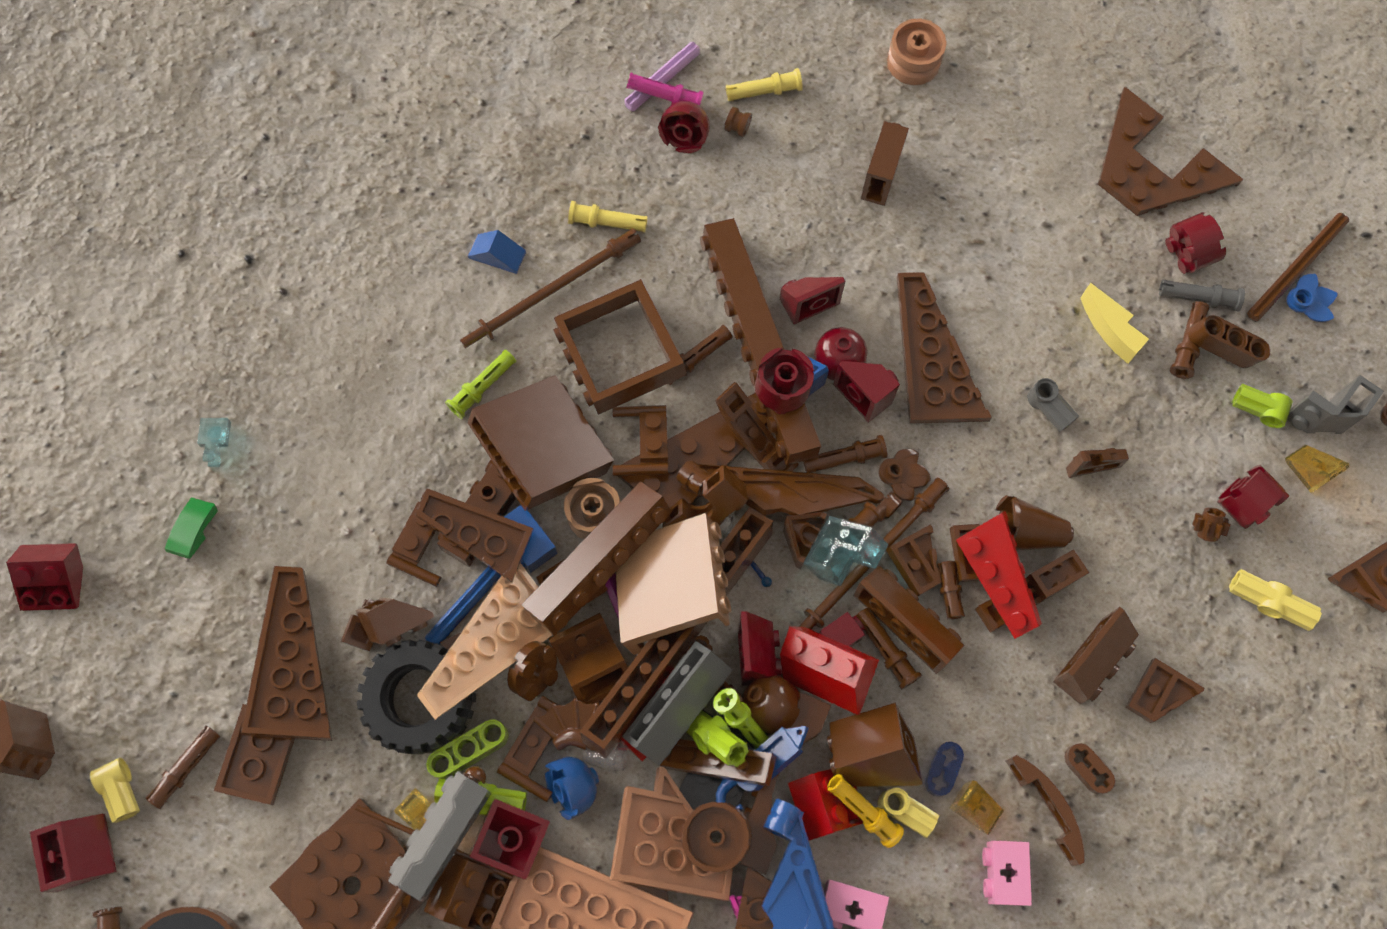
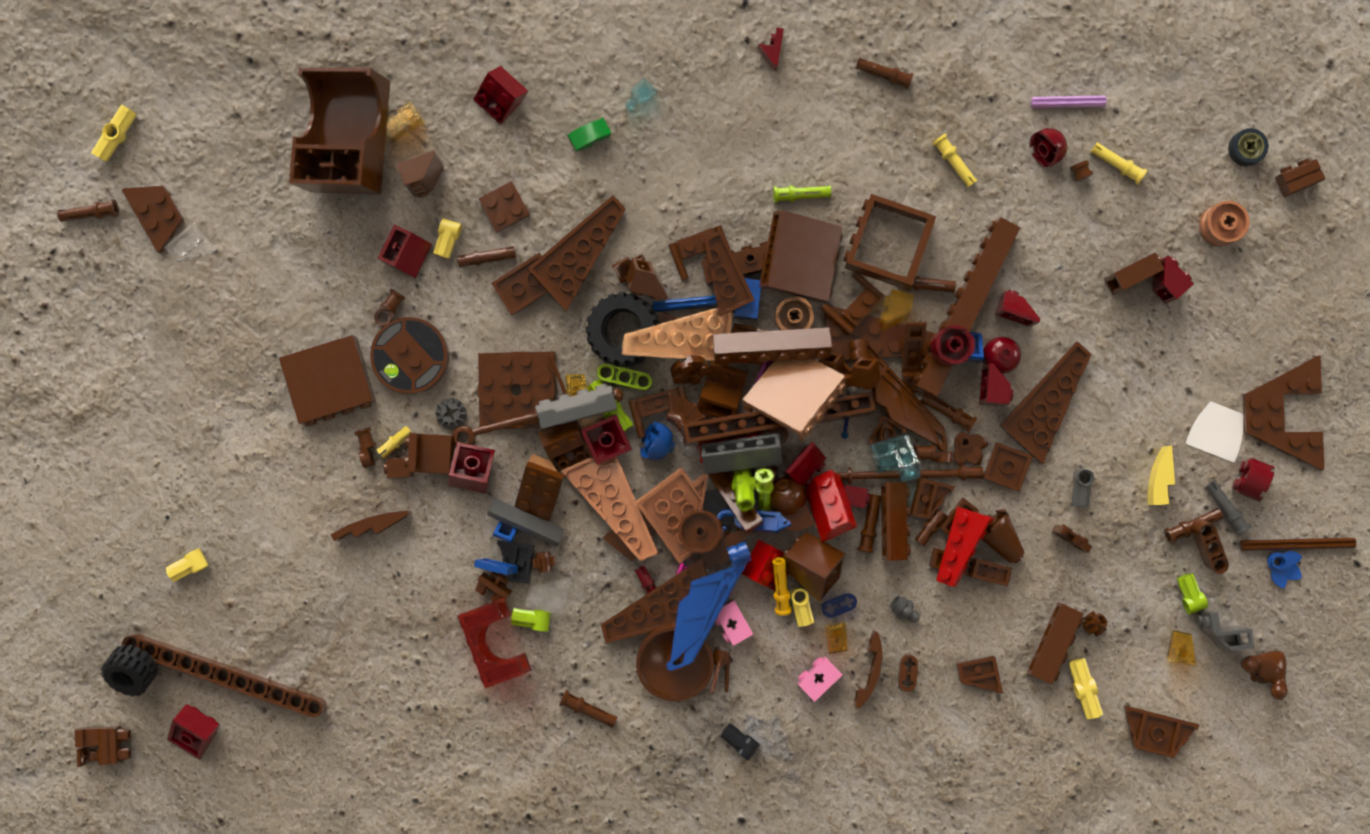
camera: 45 degrees right, 15 degrees up
(158, 692) = (504, 206): none -> reddish brown plate
(318, 277) = (771, 53): none -> dark red slope
(467, 195) = (893, 75): none -> reddish brown pin
(497, 251) = (878, 124): blue slope -> none
(613, 249) = (941, 182): reddish brown bar -> none
(663, 90) = (1063, 122): dark pink pin -> none
(692, 403) = (897, 309): none -> clear yellow slope
(926, 139) = (1171, 281): none -> dark red slope
(960, 454) = (1007, 466): none -> reddish brown plate
(1013, 703) = (904, 609): none -> dark grey piece
(1098, 657) = (967, 628): reddish brown slope -> none
(1113, 236) = (1217, 431): none -> white sticker
(1197, 583) = (1055, 643): none -> reddish brown brick
(1252, 496) = (1129, 631): dark red brick -> none

